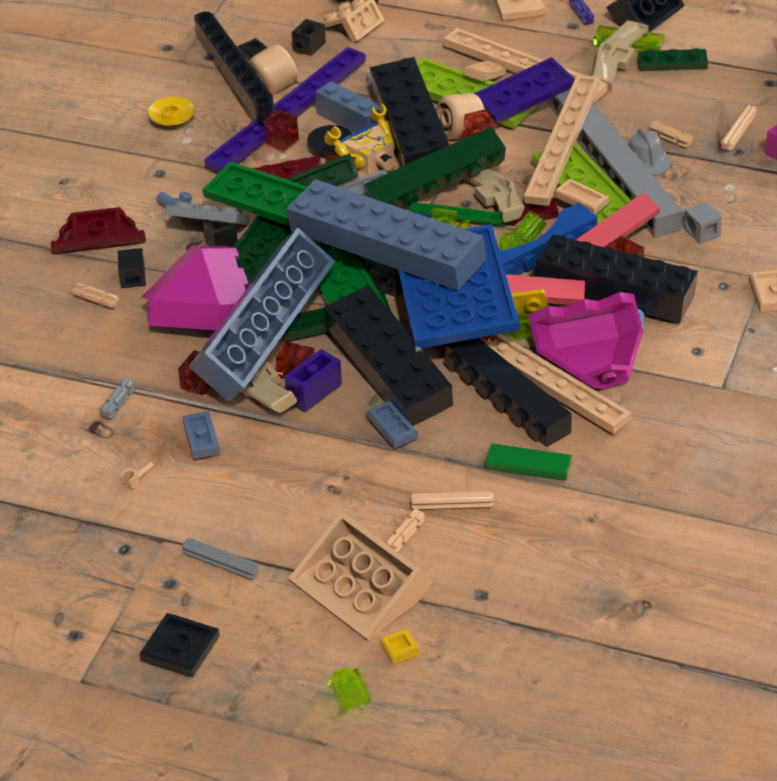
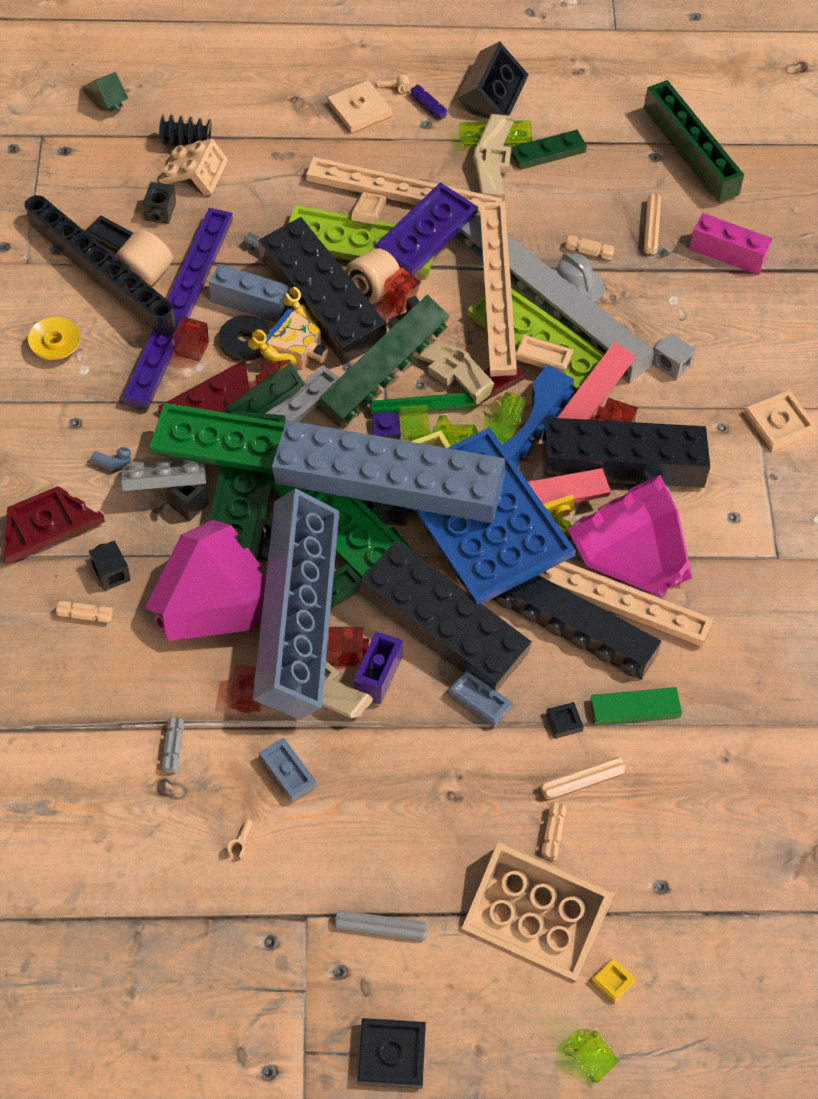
camera: 25 degrees left, 15 degrees up
(459, 458) = (564, 720): none -> black tile

